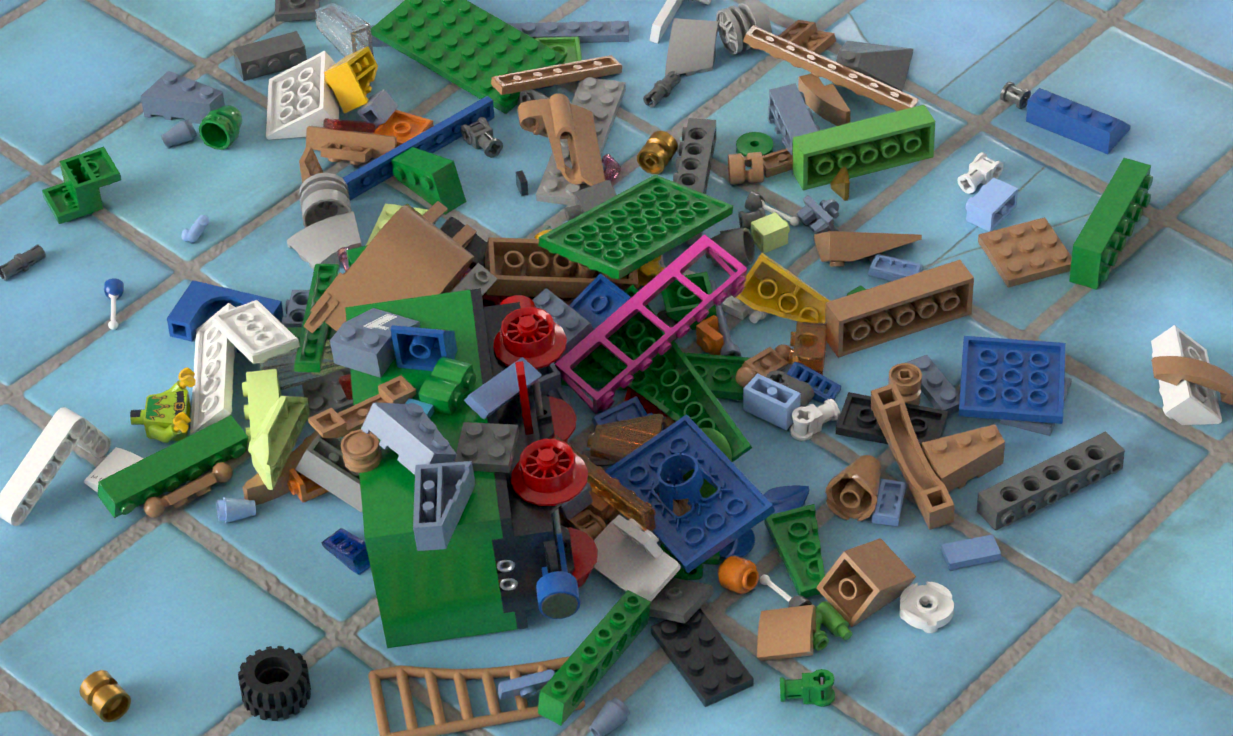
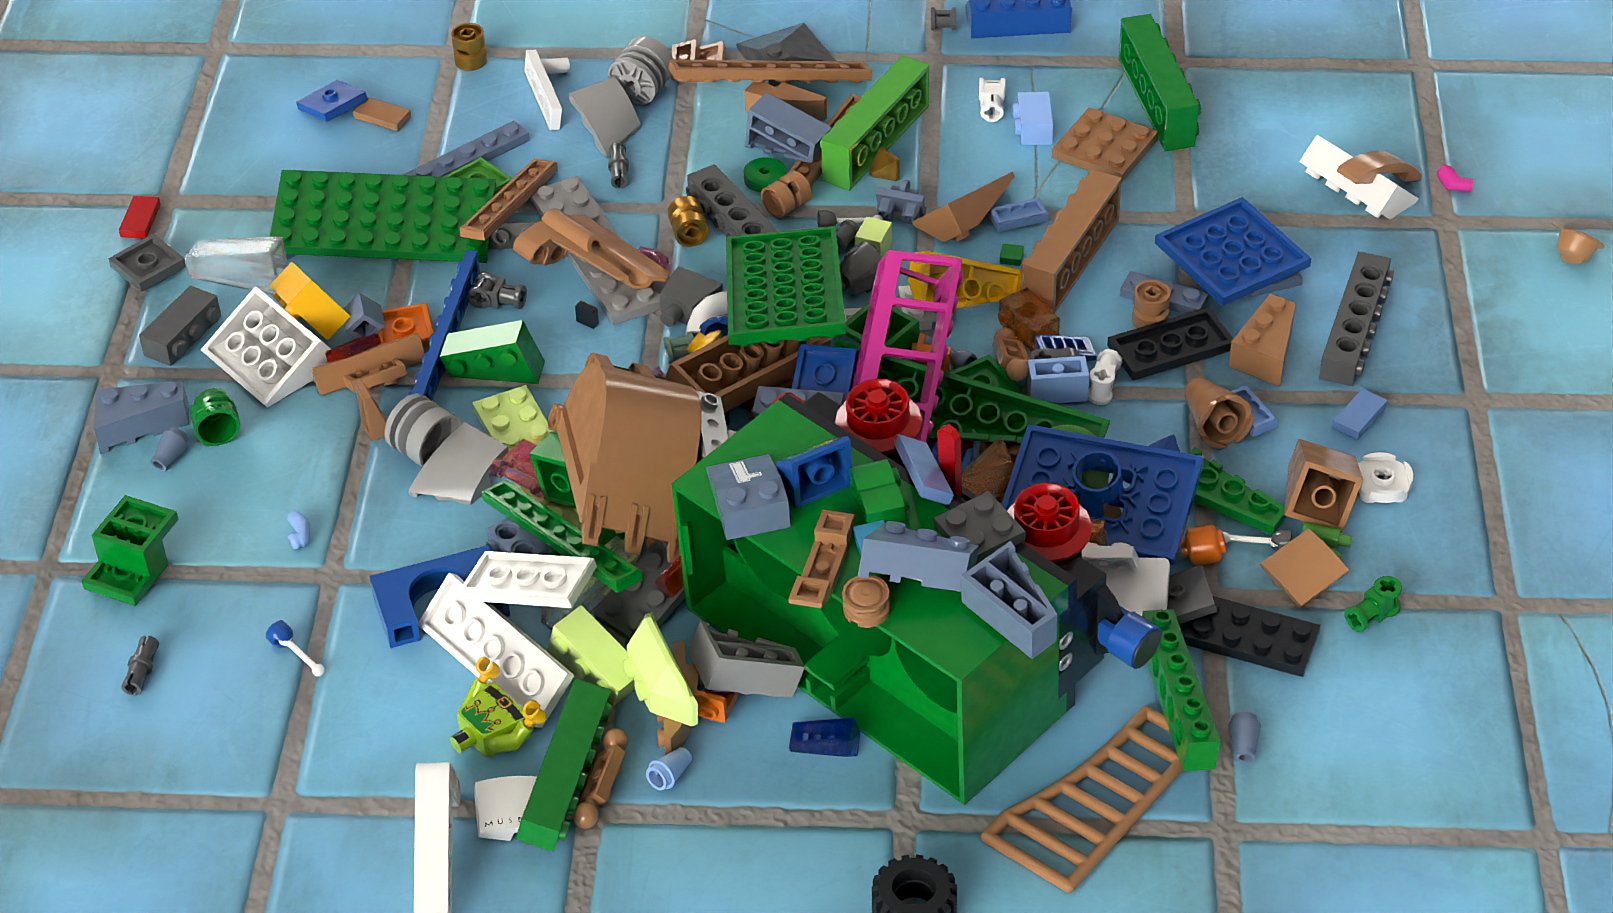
camera: 40 degrees left, 0 degrees up
(525, 685) = (1151, 751): medium blue plate -> none
(923, 483) = (1281, 382): medium nougat arch -> none

